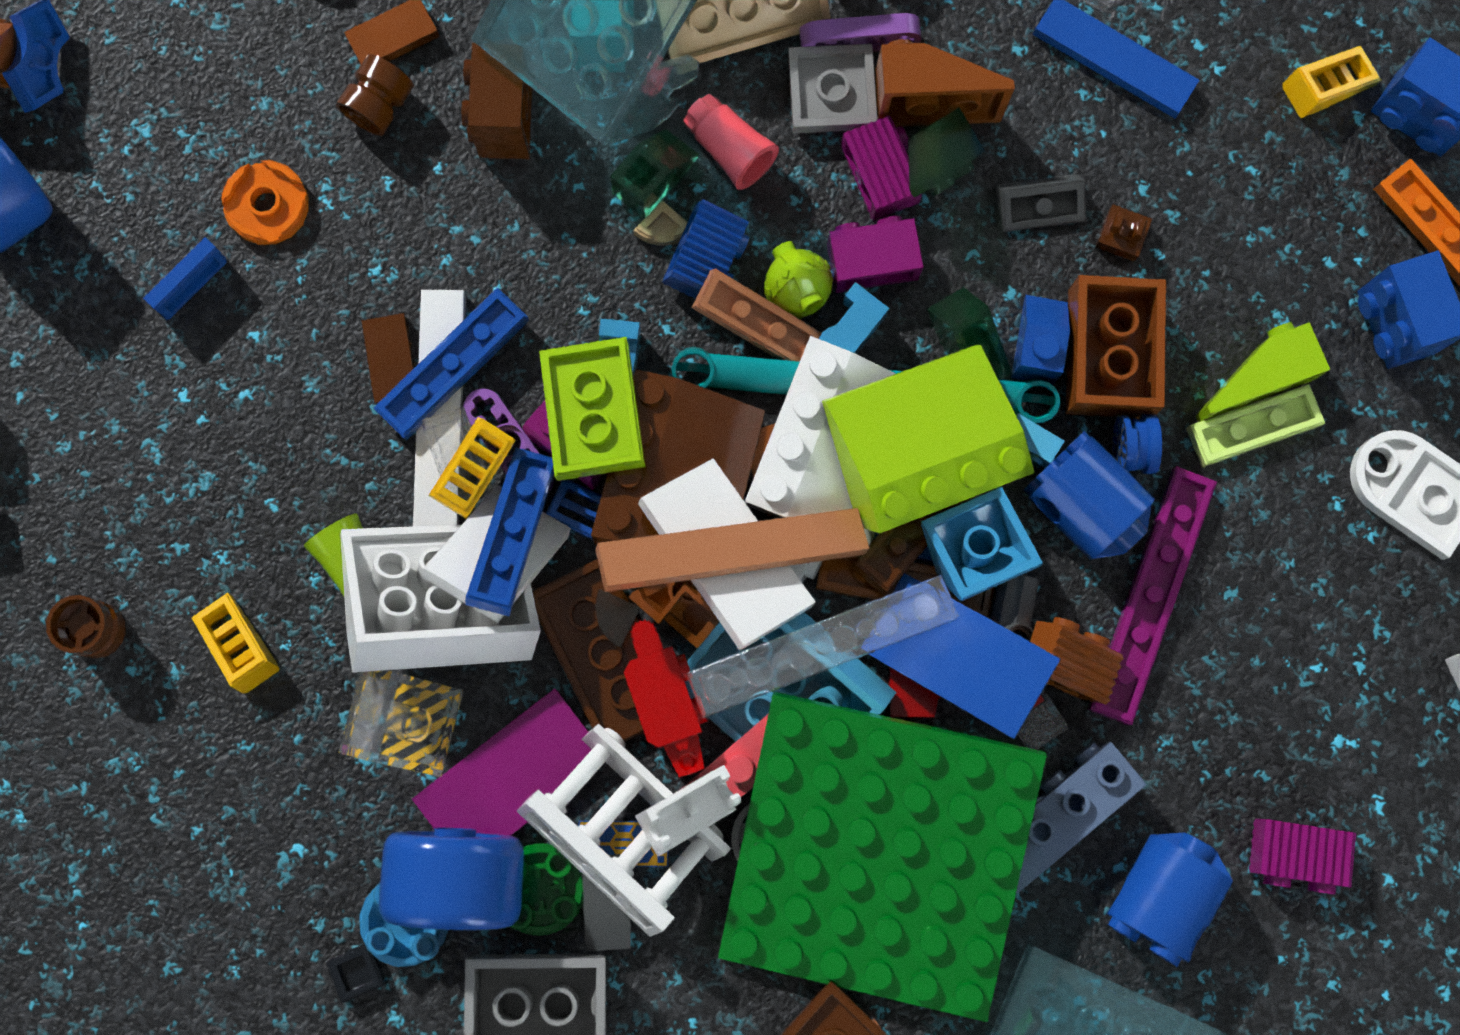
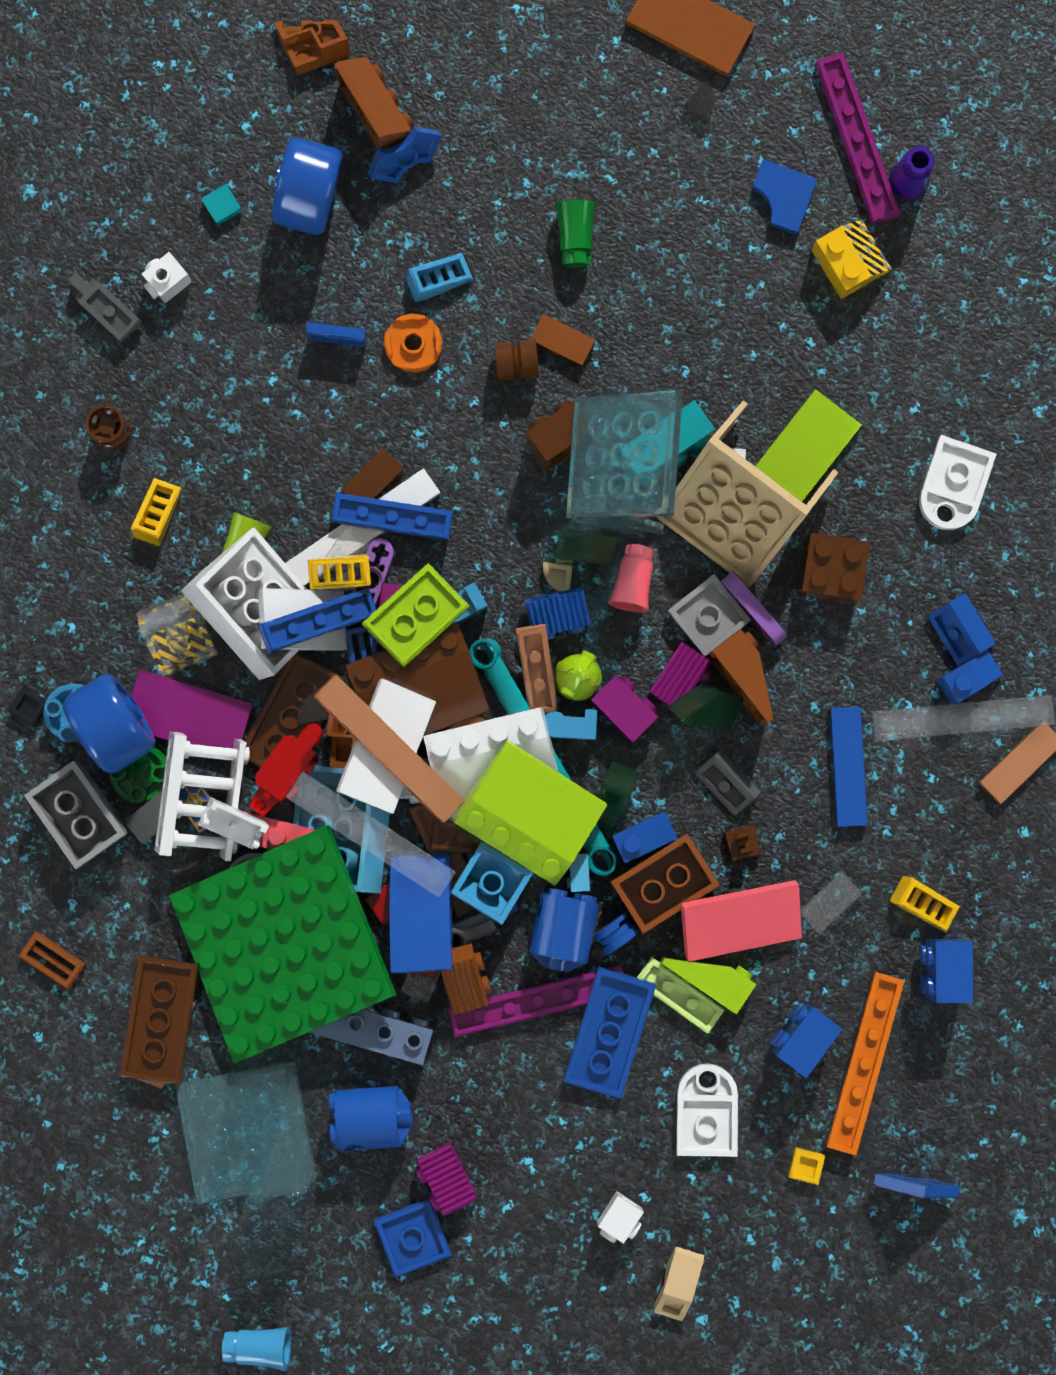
camera: 55 degrees right, 5 degrees up
(204, 146) = (430, 289): none -> dark azure slope
(1220, 289) = (741, 920): none -> coral tile
(1249, 535) = (609, 1032): none -> blue tile
(1260, 183) = (830, 902): none -> clear tile
(1345, 947) = (412, 1237): none -> blue tile

